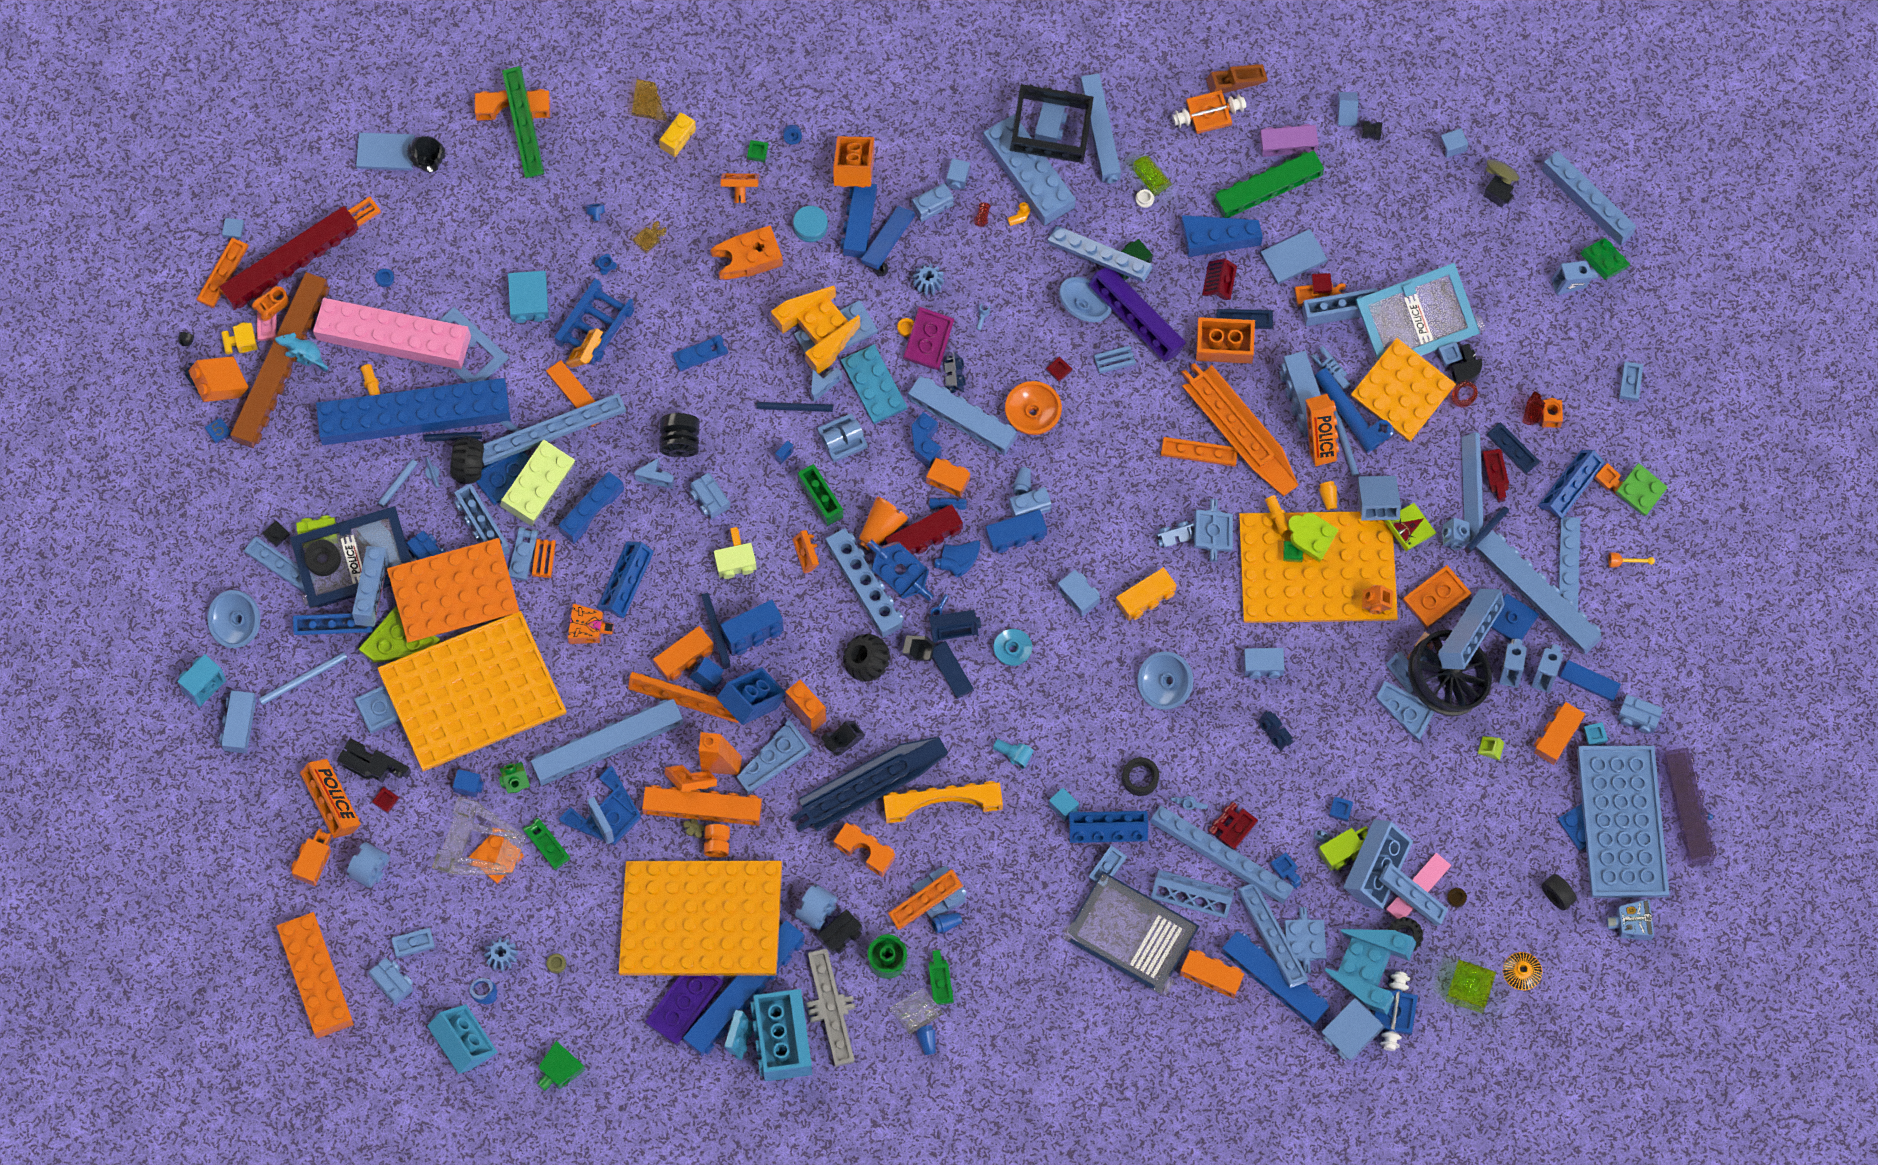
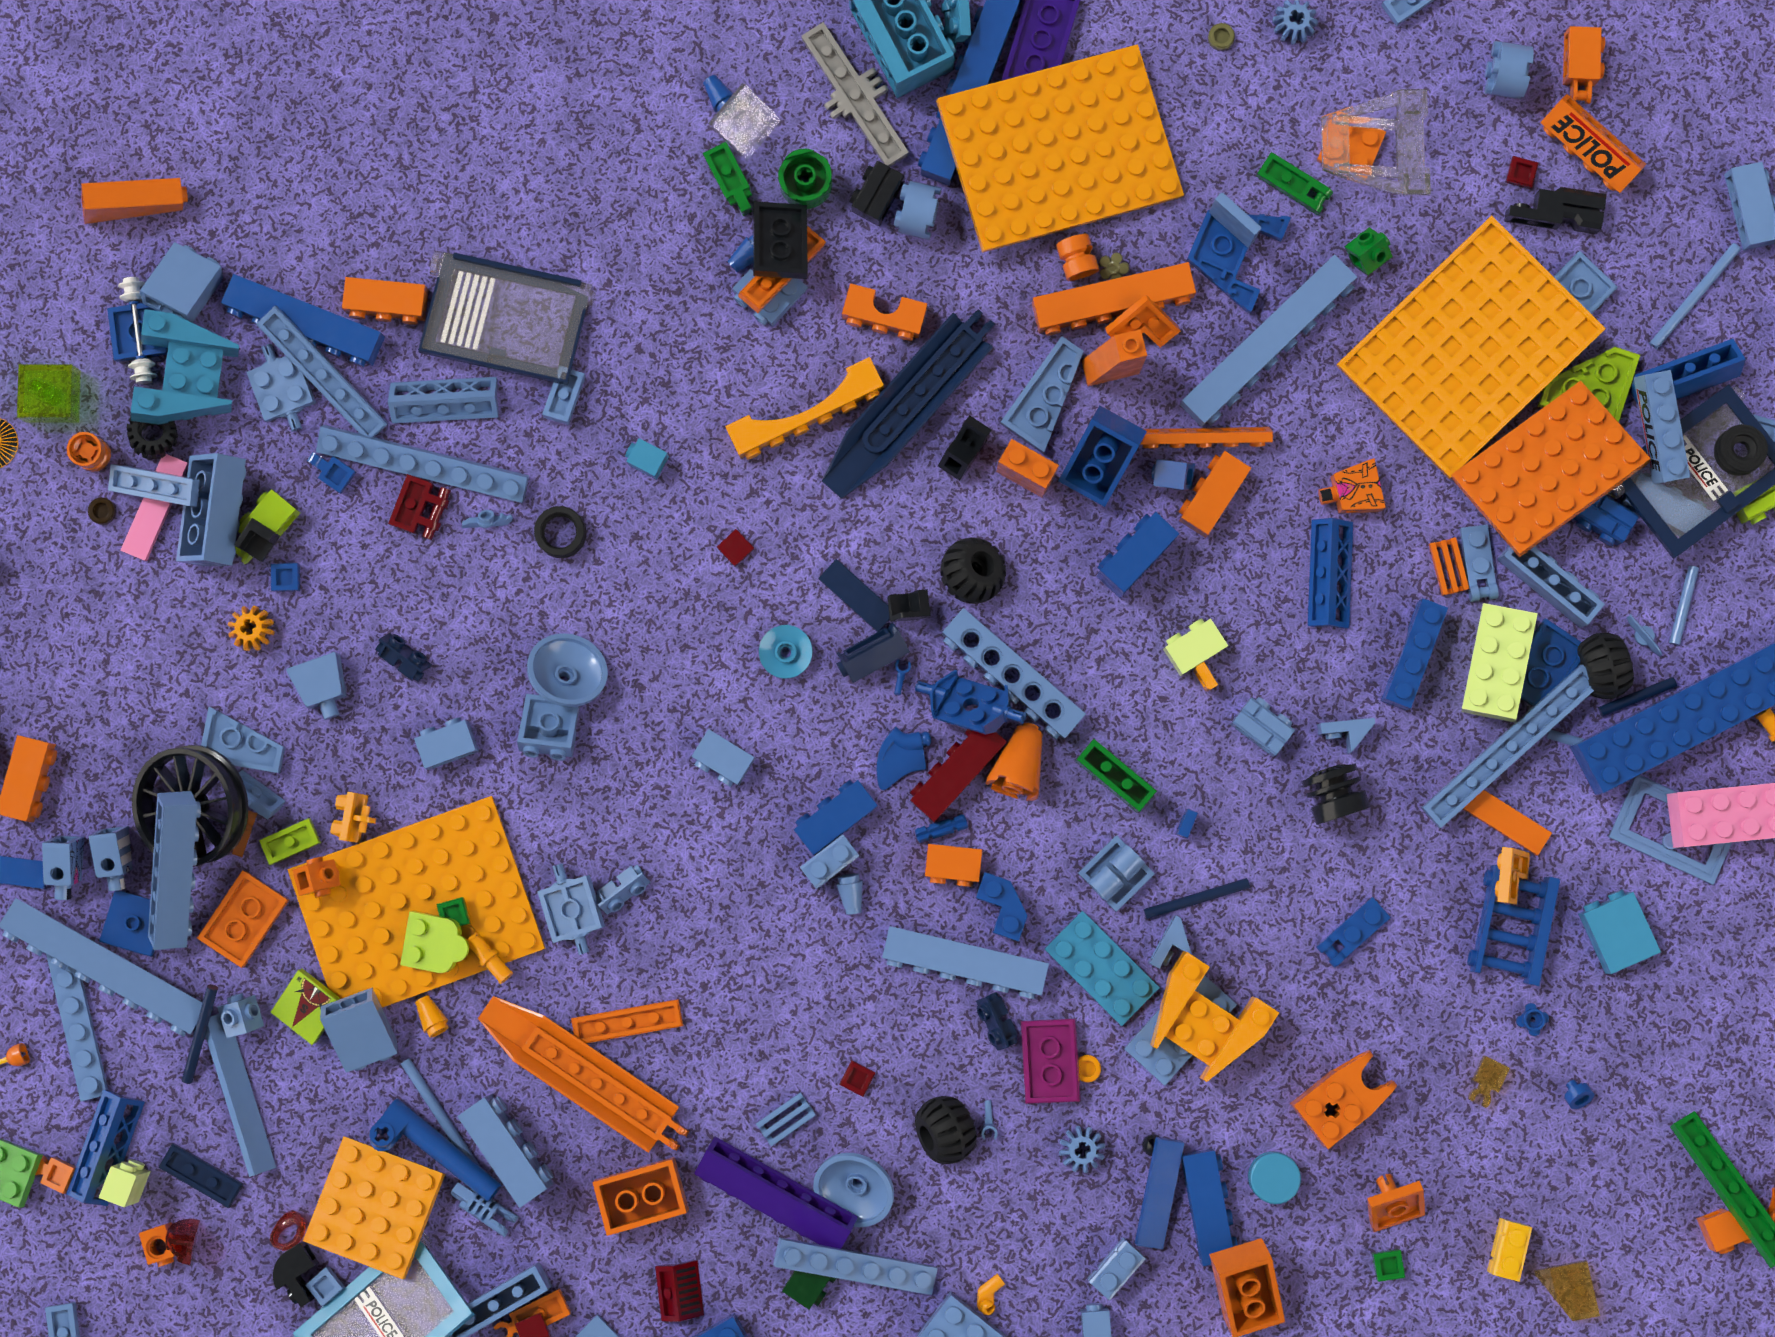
camera: 165 degrees right, 15 degrees up
(468, 783) = (1425, 225): blue brick -> none
(716, 630) = (1186, 542): dark blue tile -> none
(792, 134) = (1349, 1307): blue tile -> none
(805, 551) = (1101, 685): orange plate -> none
(920, 915) = (780, 240): none -> black plate
(982, 214) = (1041, 1276): clear red pin -> none
(1012, 318) = (945, 1130): none -> black wheel
(1017, 754) = (731, 508): dark azure pin -> none
(1023, 728) = (735, 548): none -> dark red tile
(1036, 397) = (866, 1022): orange dish -> none
(1108, 826) = (578, 444): blue brick -> none
(1146, 594) = (632, 786): light orange brick -> none
(1193, 648) = (547, 728): none -> medium blue plate
(1262, 318) = (626, 1244): dark blue tile -> none
(1321, 836) = (301, 535): medium blue rock -> none
(1322, 429) = (461, 1095): orange brick -> none
(1338, 730) = (320, 683): none -> medium blue torso
(1340, 635) = (354, 818): none -> light orange hips
(1350, 831) = (257, 540): none -> black panel
(1372, 1102) = (131, 199): none -> orange slope
(1382, 779) = (242, 623): none -> light orange gear
(1390, 635) = (290, 841): none -> lime plate
(1453, 935) = (88, 451): none -> orange wheel
(1491, 747) = (113, 731): lime slope -> none
(1496, 473) = (212, 1128): dark red hinge -> none
(1562, 453) = (125, 1183): none -> yellowish green brick

